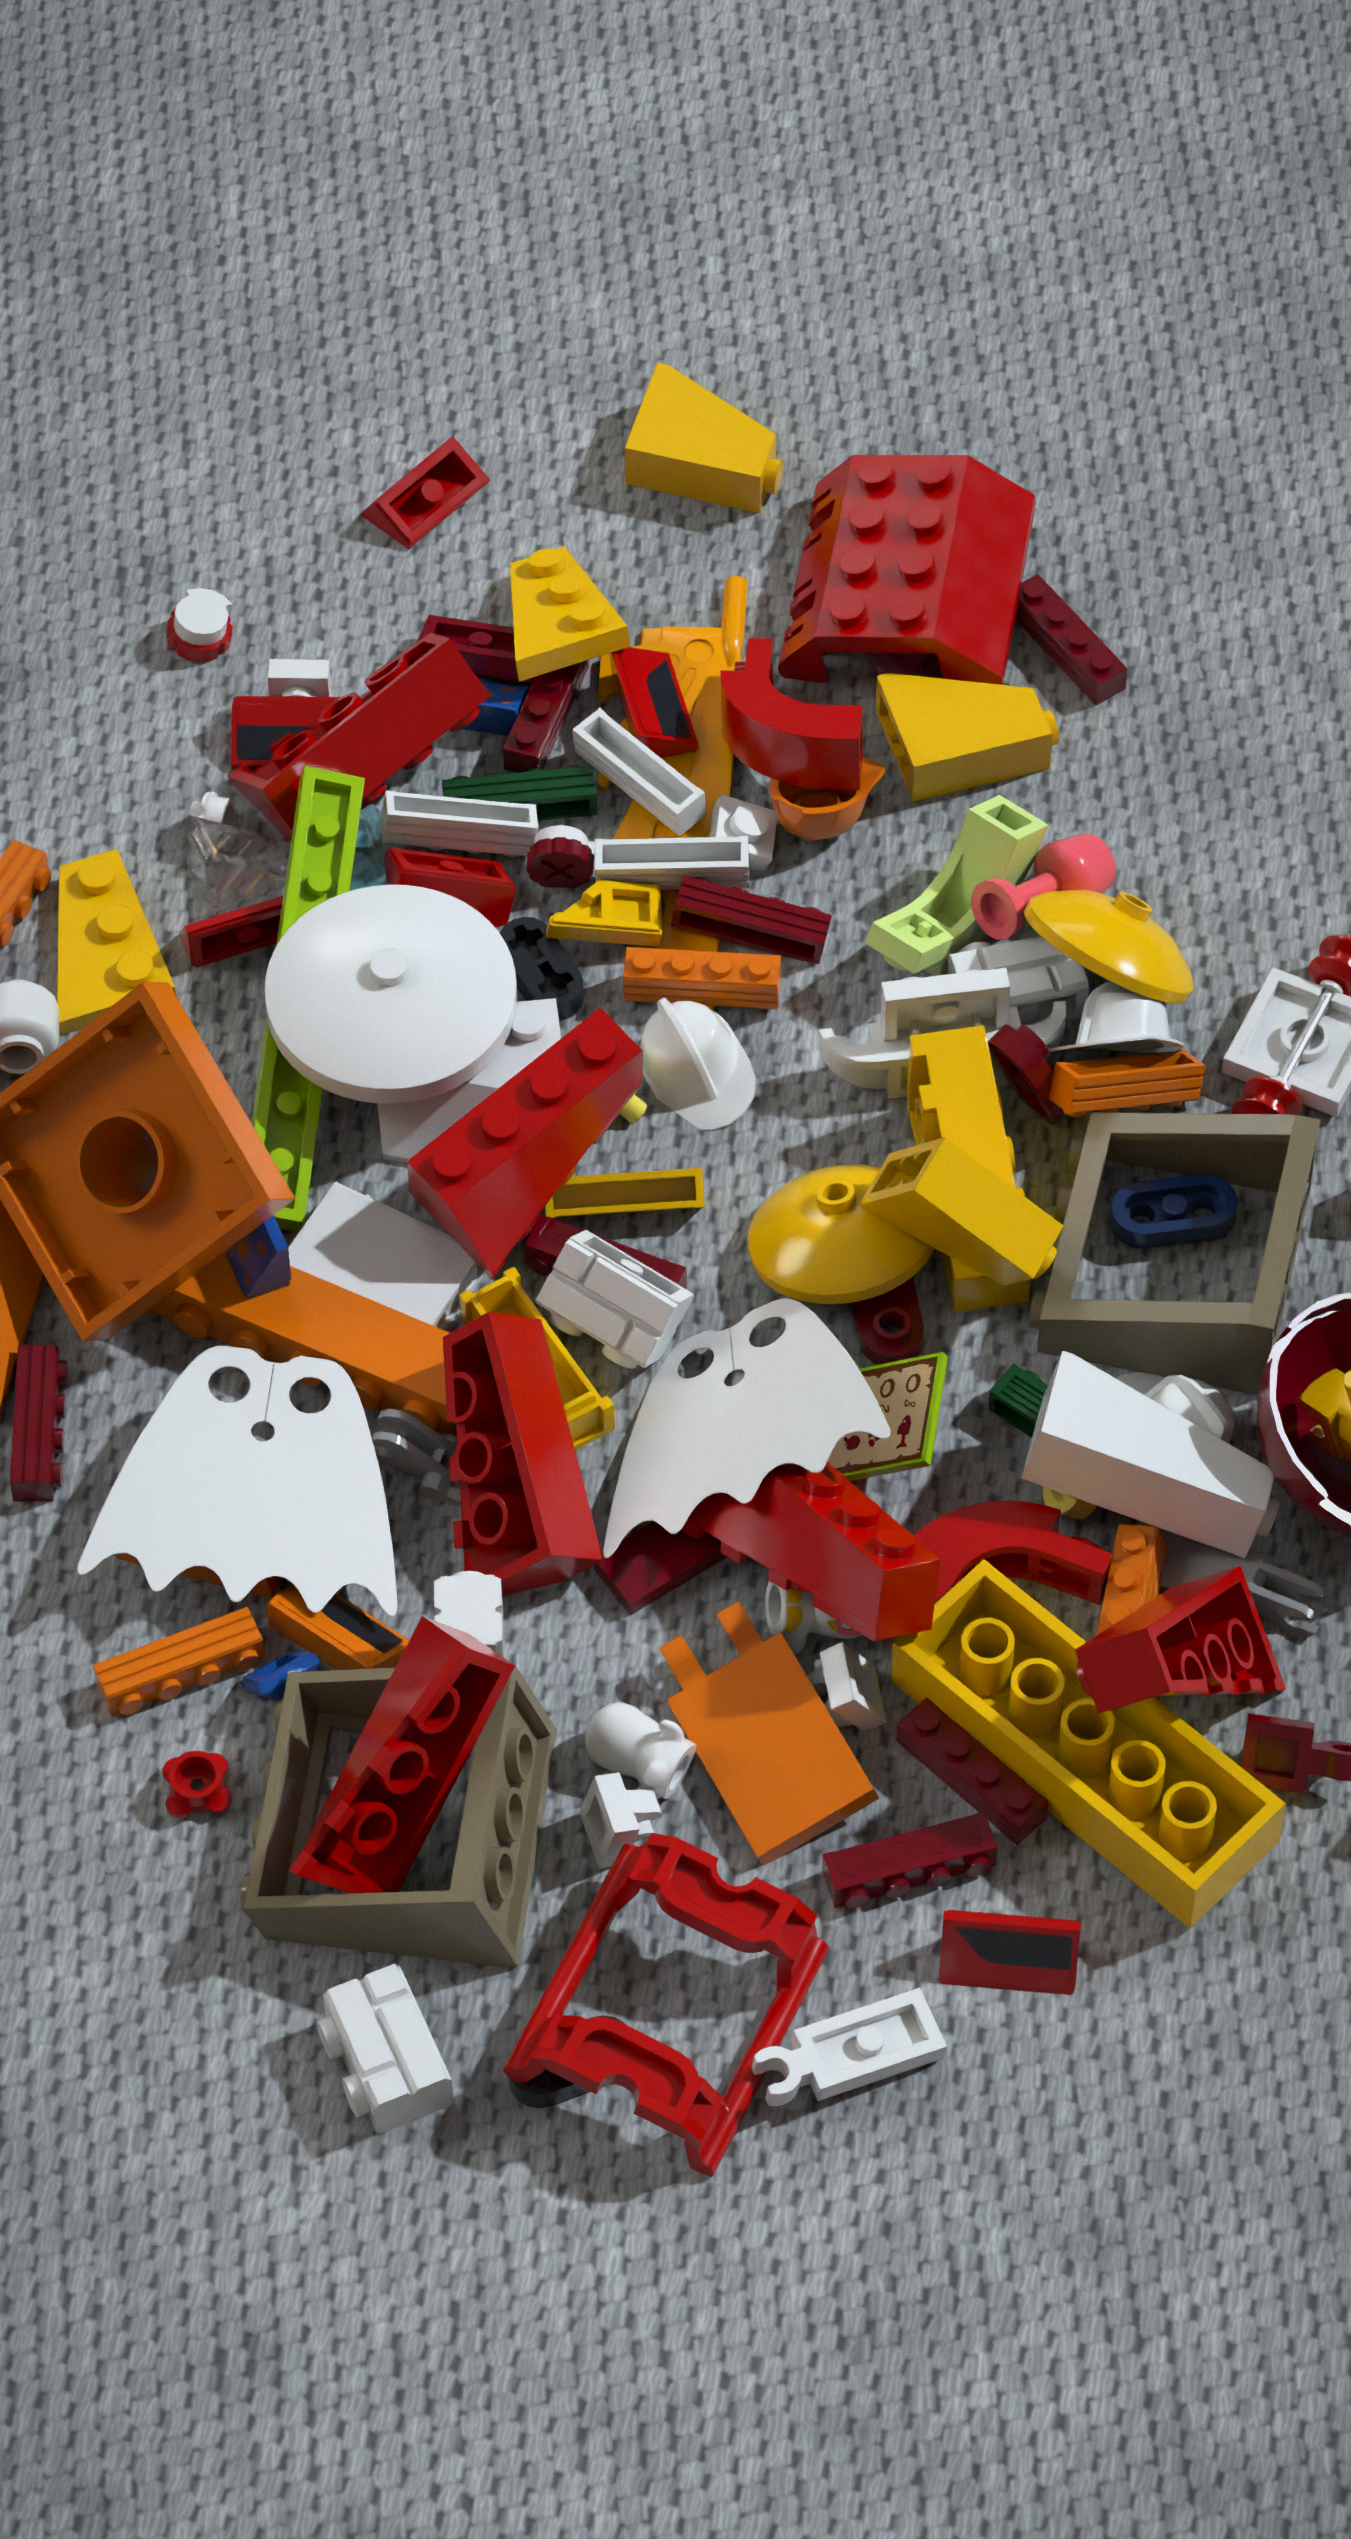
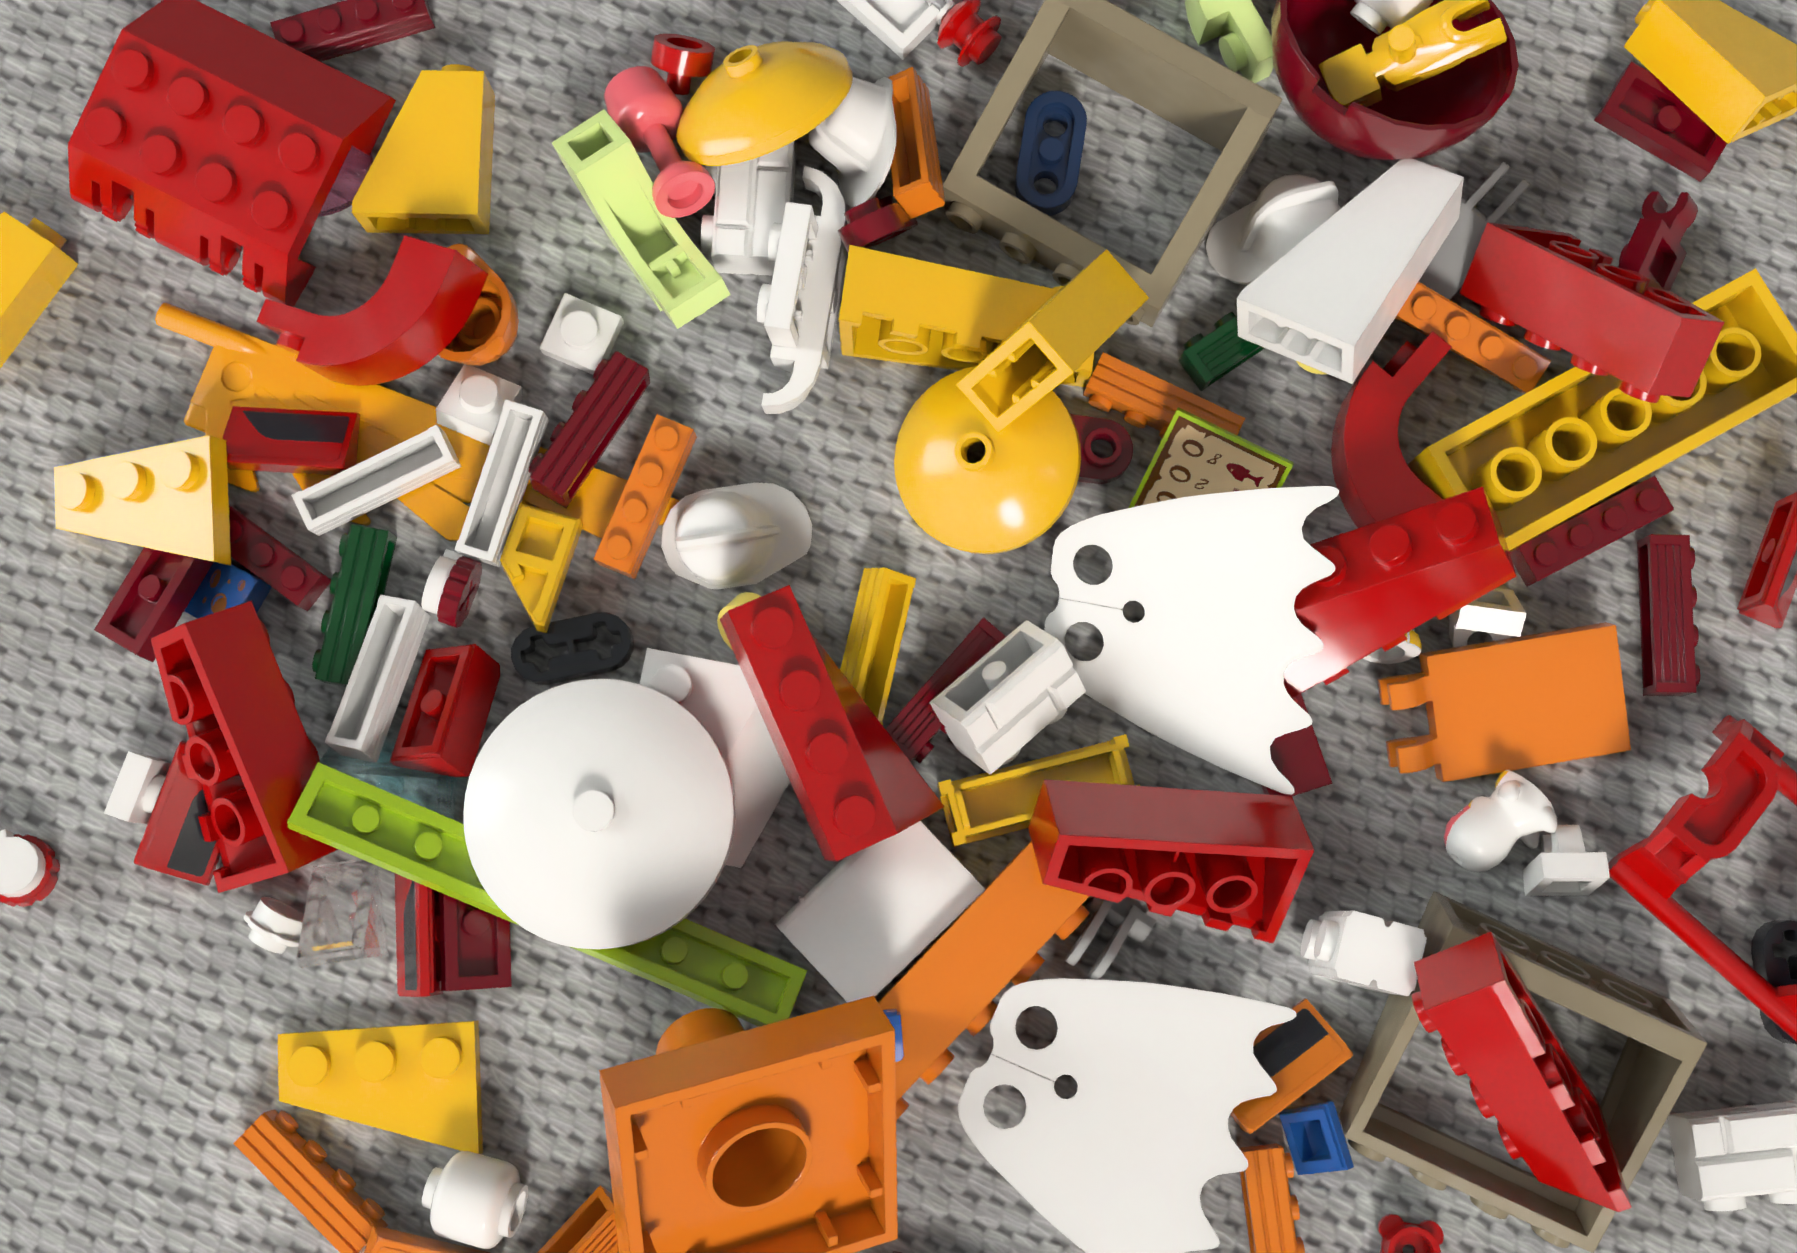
camera: 75 degrees left, 25 degrees up
(237, 964) = (472, 947): none -> dark red plate
(843, 893) = (581, 334): none -> white plate
(960, 1340) = (1149, 399): none -> orange piece
(1146, 883) = (682, 59): none -> red tile

